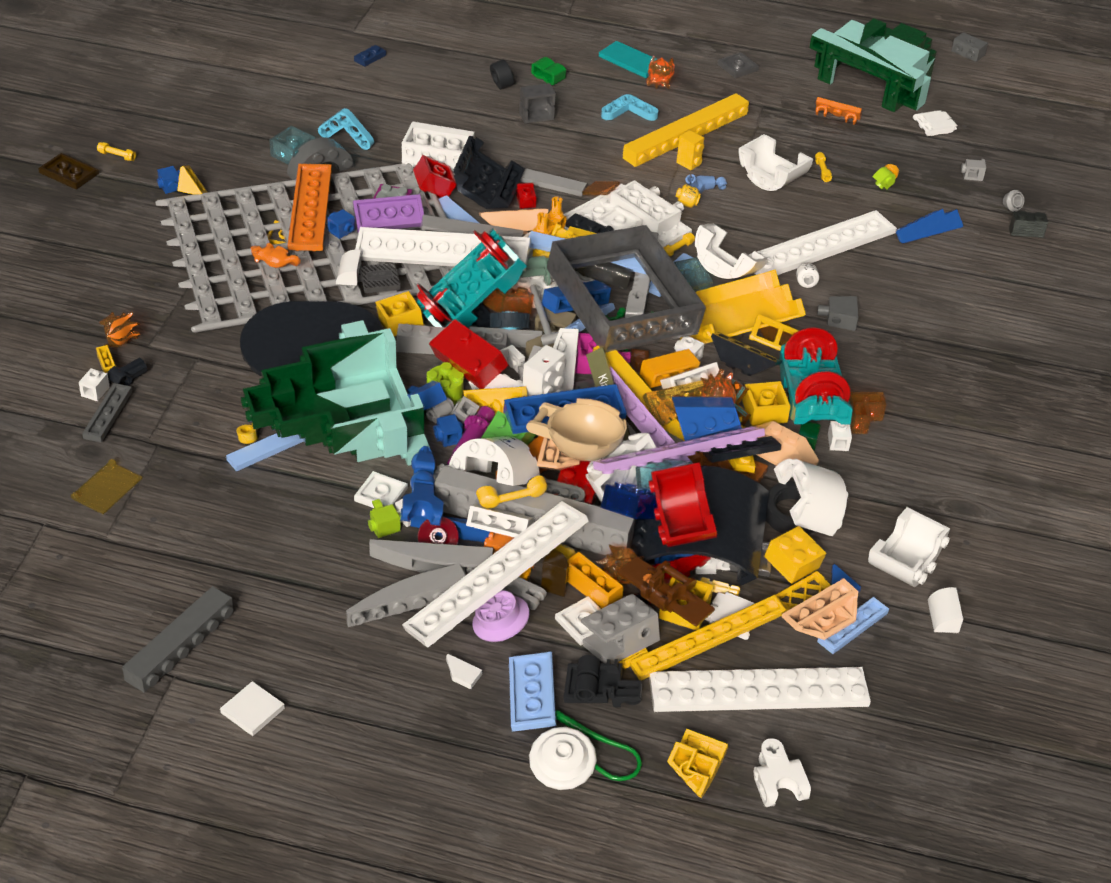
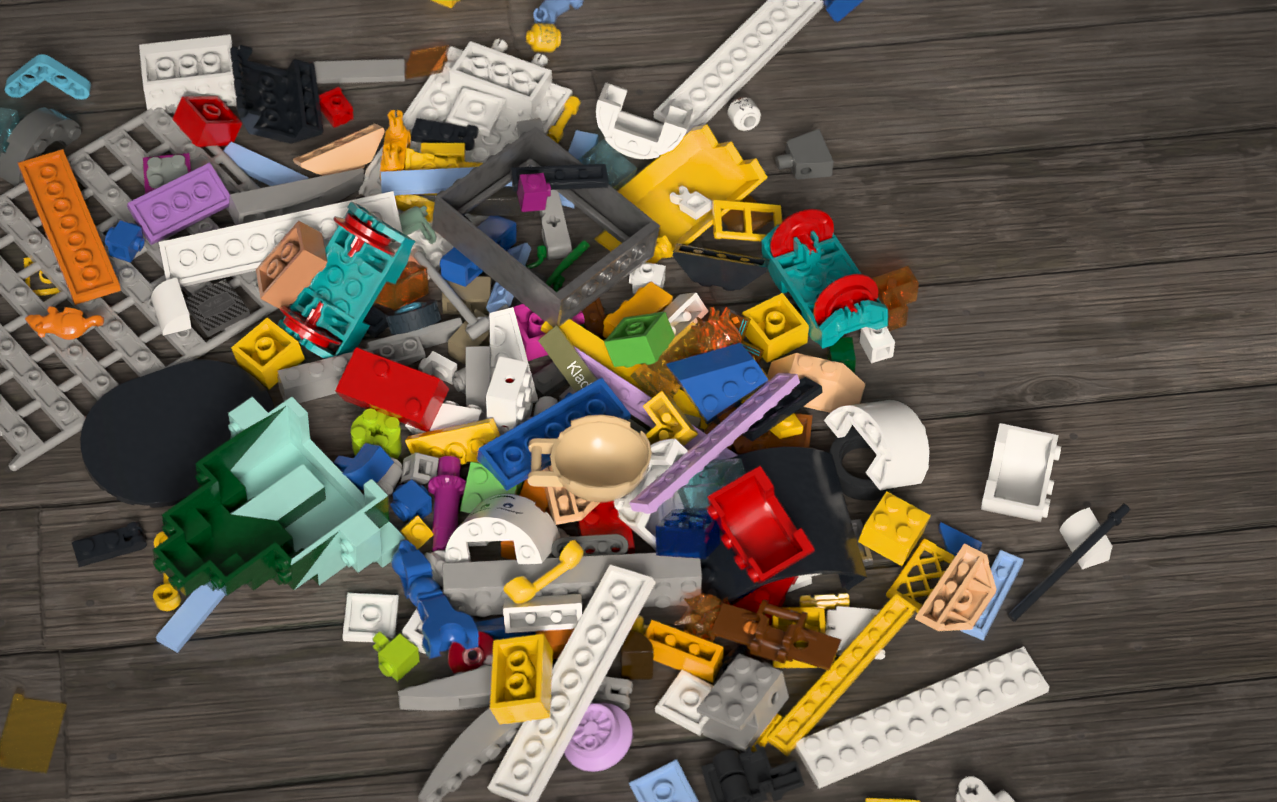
camera: 20 degrees left, 10 degrees up
(223, 392) = (109, 544): none -> black plate
(439, 261) = (291, 265): none -> nougat brick
(441, 449) = (416, 532): none -> yellow plate
(459, 555) = (521, 679): none -> yellow brick
(622, 257) = (533, 192): none -> magenta brick
(647, 257) = (566, 176): none -> black tile
(654, 424) = (669, 421): none -> yellow brick
(658, 374) = (639, 339): none -> bright green brick
(742, 315) = (691, 204): none -> white plate
(971, 599) = (1113, 519): none -> black bar

